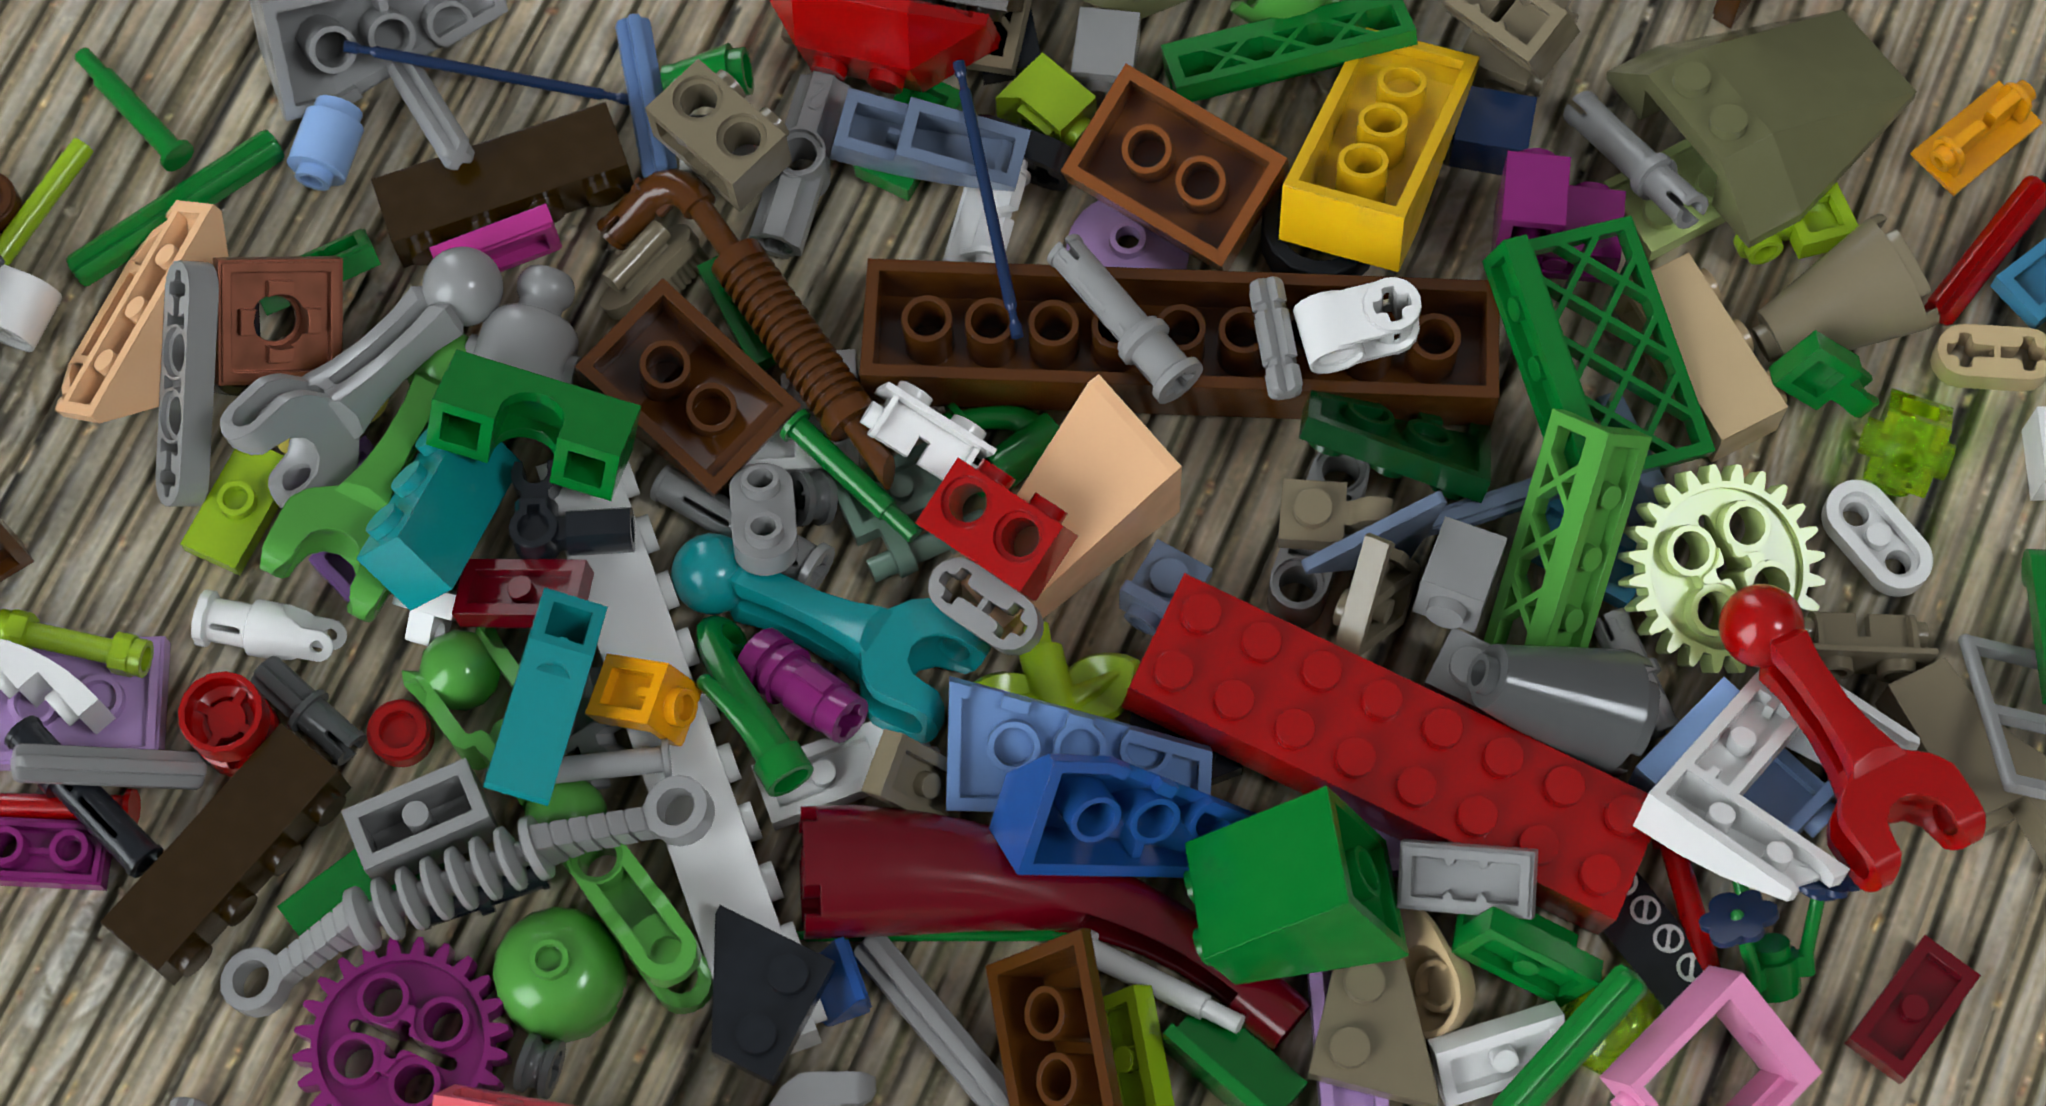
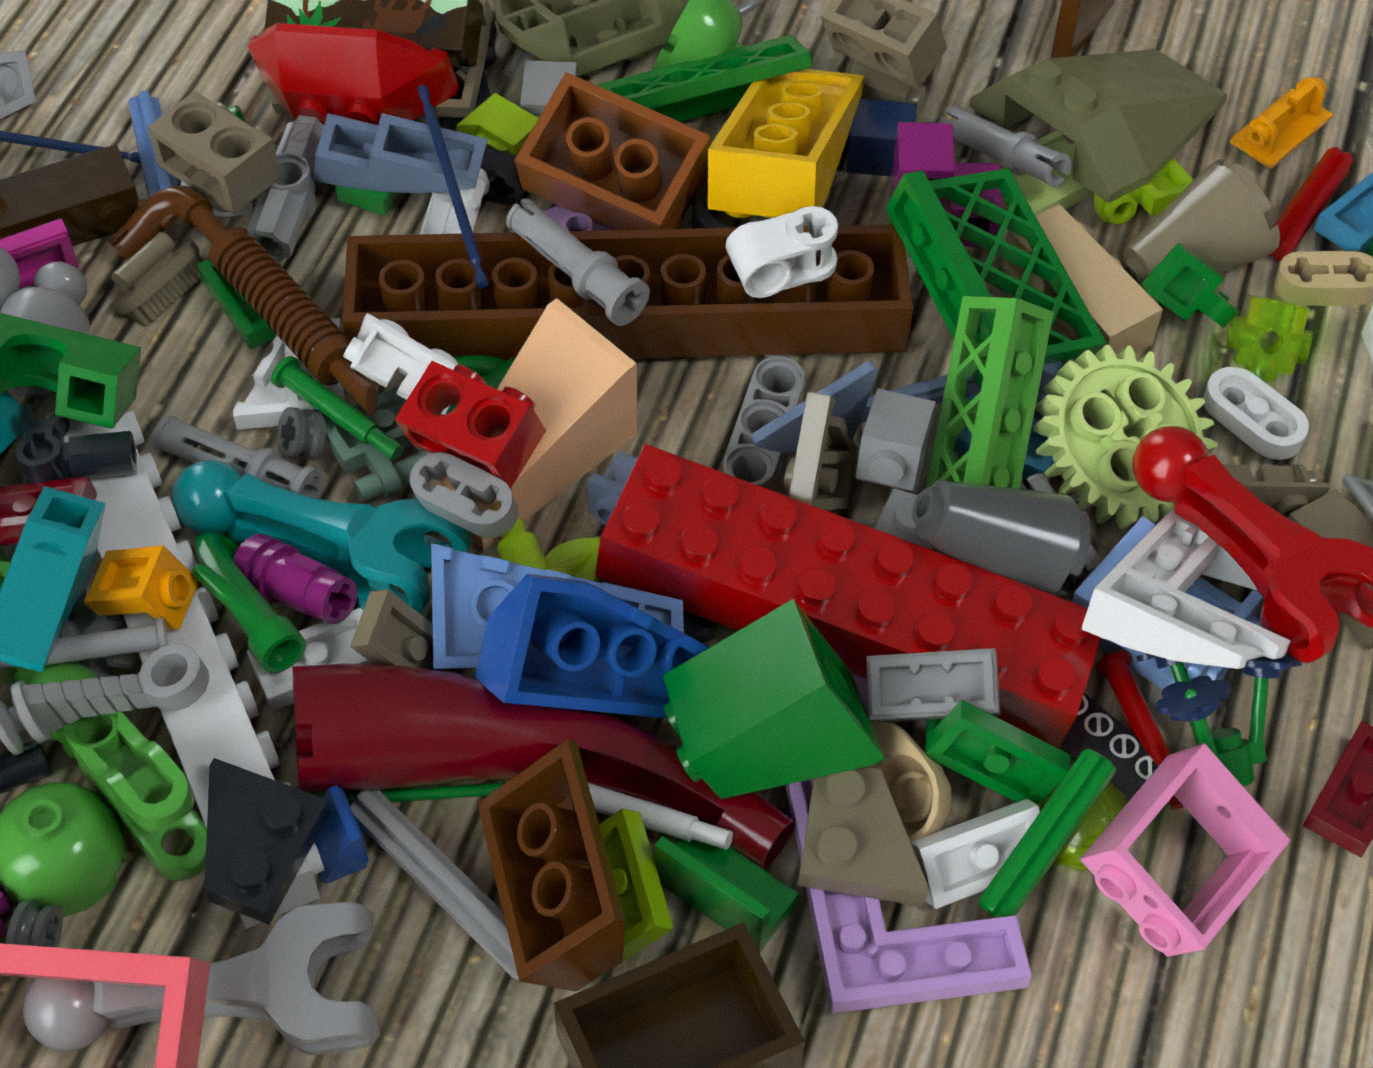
camera: 10 degrees left, 15 degrees down
(696, 389) = (195, 350): reddish brown slope -> none
(763, 519) = (256, 443): light grey plate -> none
(1275, 338) = (712, 270): light grey axle -> none
(1318, 515) = (760, 401): dark tan plate -> none
(1398, 448) = (773, 336): dark green wing -> none

